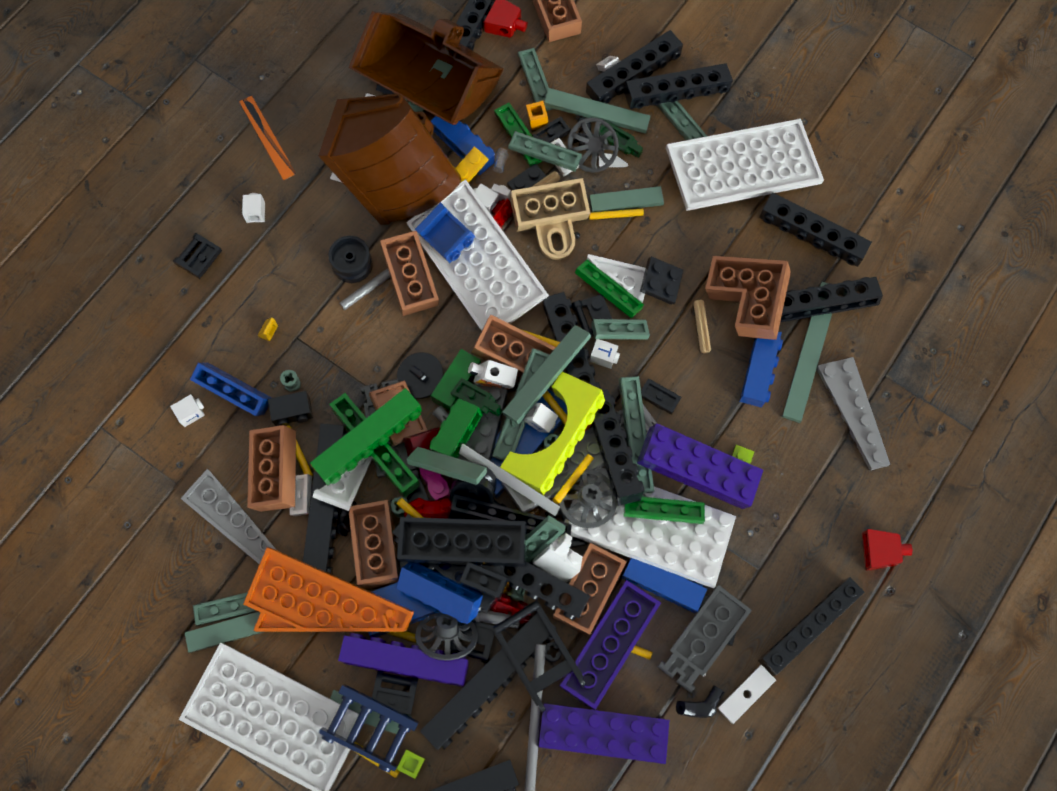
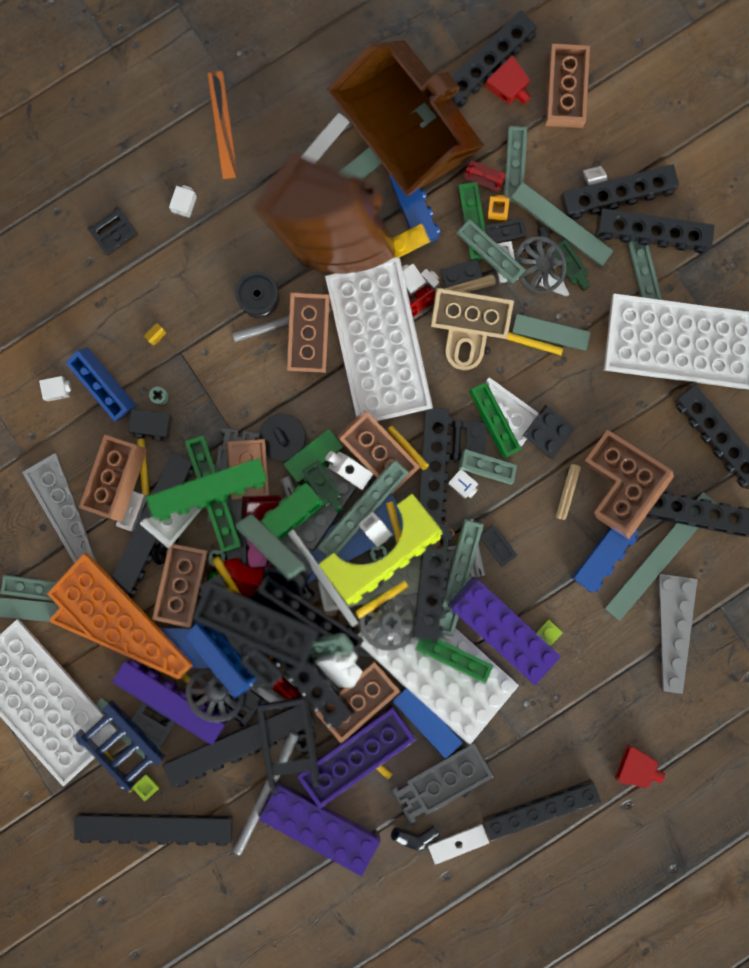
camera: 20 degrees right, 15 degrees up
(445, 233) = (358, 306): blue panel -> none
(501, 156) = (443, 242): clear pin -> none
(515, 96) = (484, 176): none -> red hinge
(546, 374) = (397, 491): sand green tile -> none

